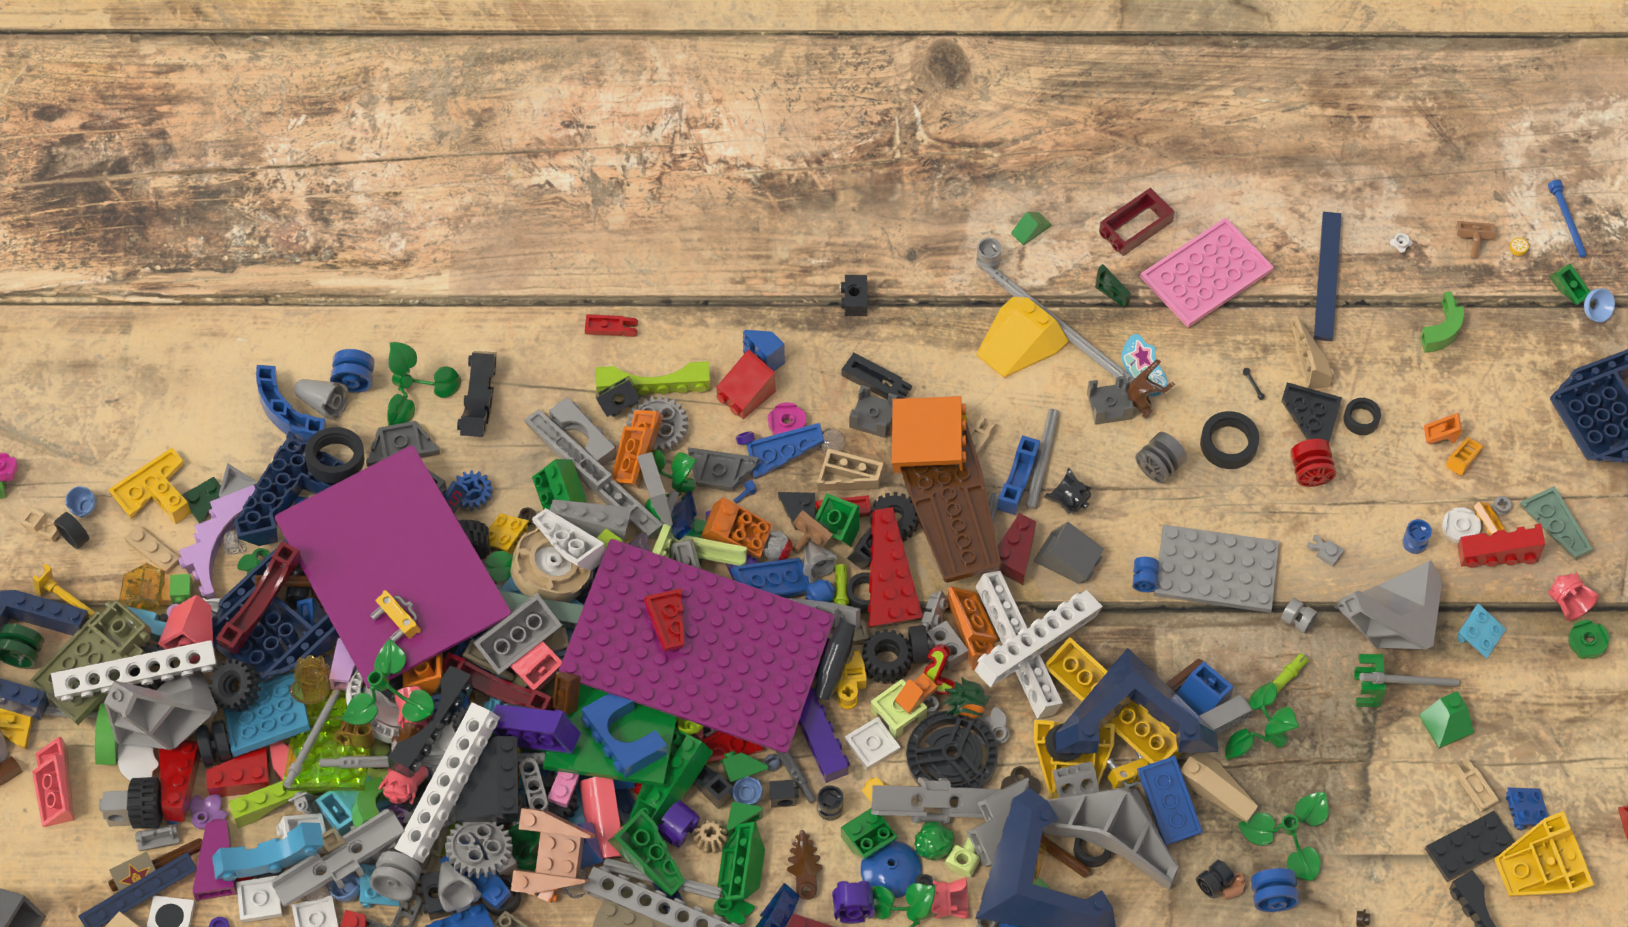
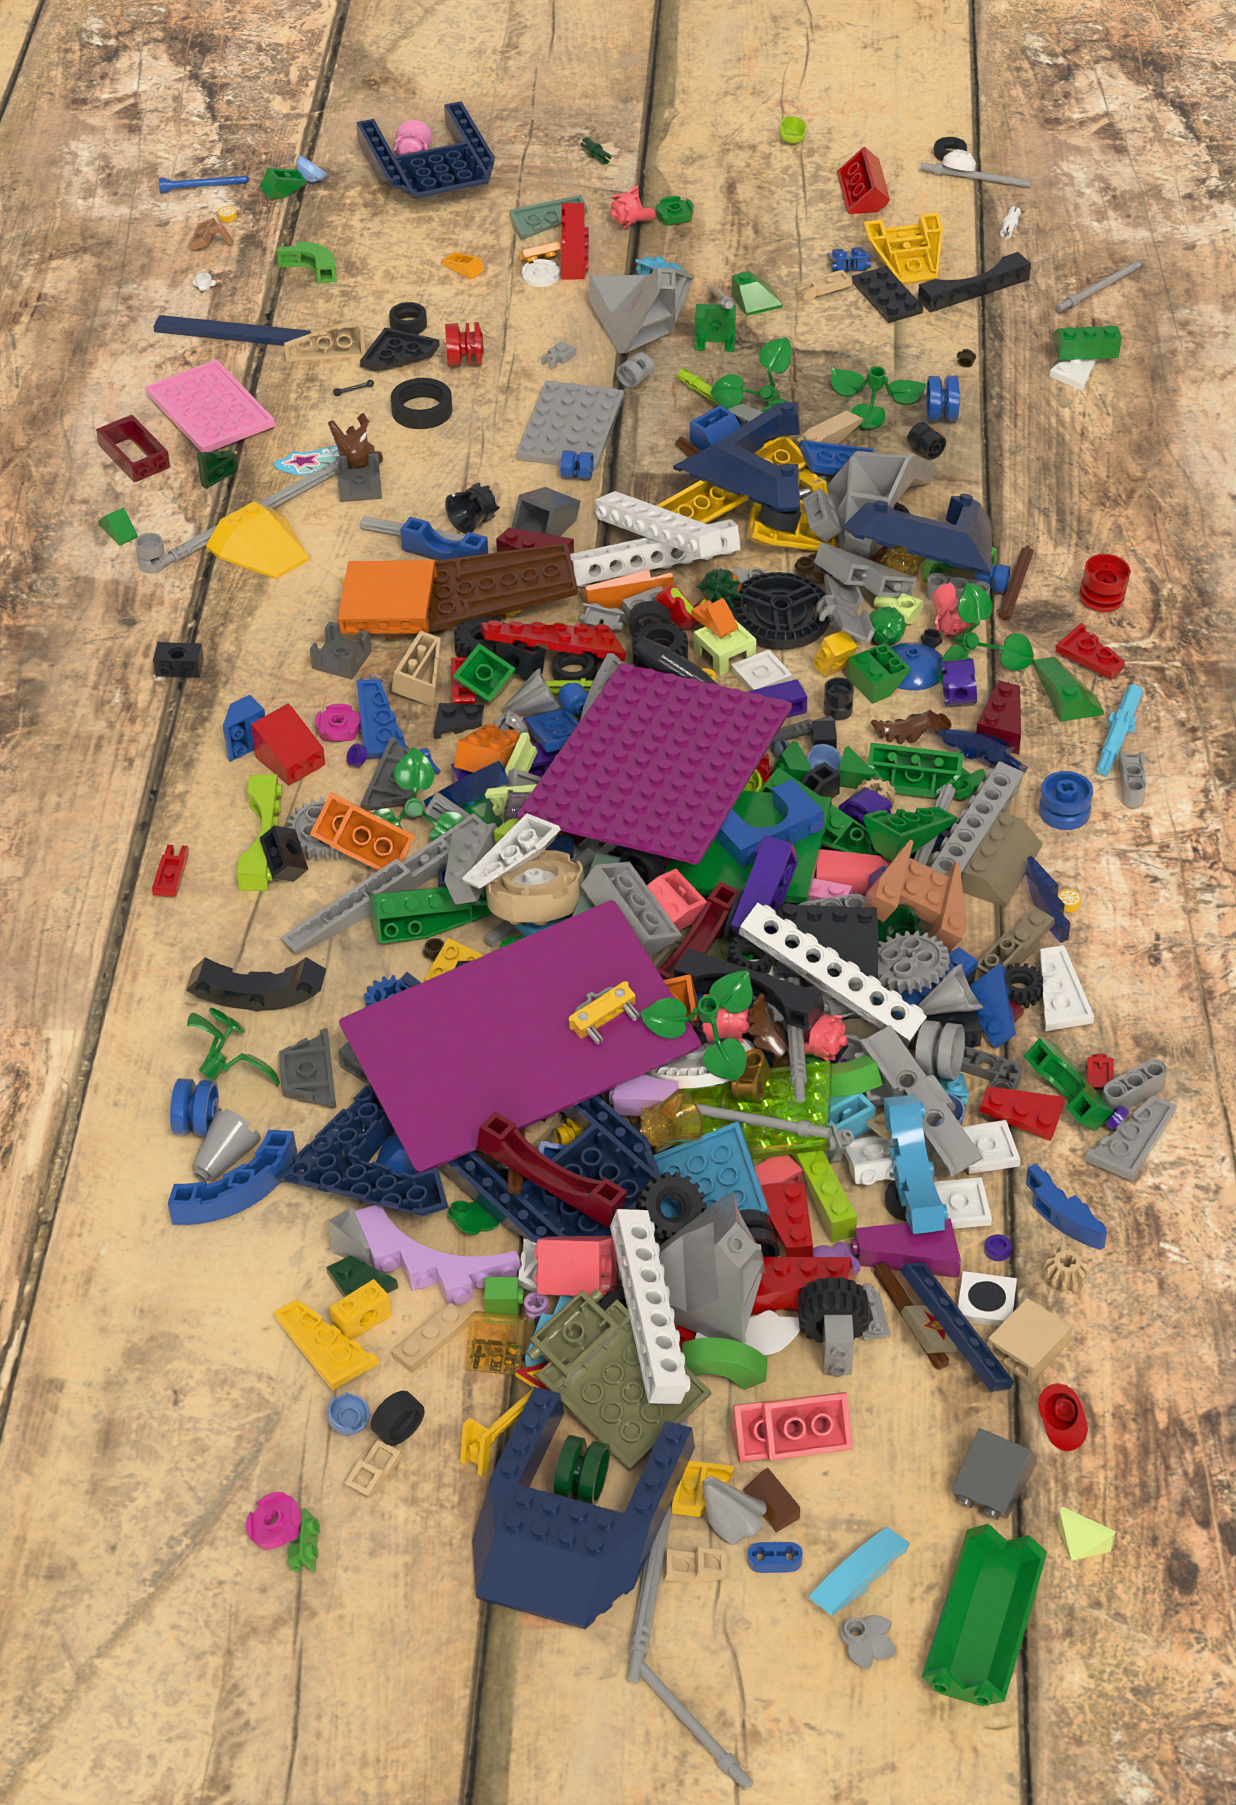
camera: 85 degrees left, 15 degrees down
(233, 544) = (442, 1233): clear plate -> none
(329, 436) = (337, 1136): black tyre -> none
(566, 692) = (717, 863): reddish brown slope -> none
(569, 417) = (300, 904): light grey arch -> none
(655, 487) = (434, 797): light grey slope -> none
(666, 615) = (624, 769): red wing -> none
(812, 530) = (494, 693): medium nougat plate -> none
(871, 375) = (286, 658): black hinge -> none
(1161, 457) = (440, 440): flat silver wheel -> none
(1417, 536) = (554, 292): blue wheel -> none
(1444, 428) = (435, 266): orange slope -> none
(1498, 509) = (521, 245): light grey bush -> none

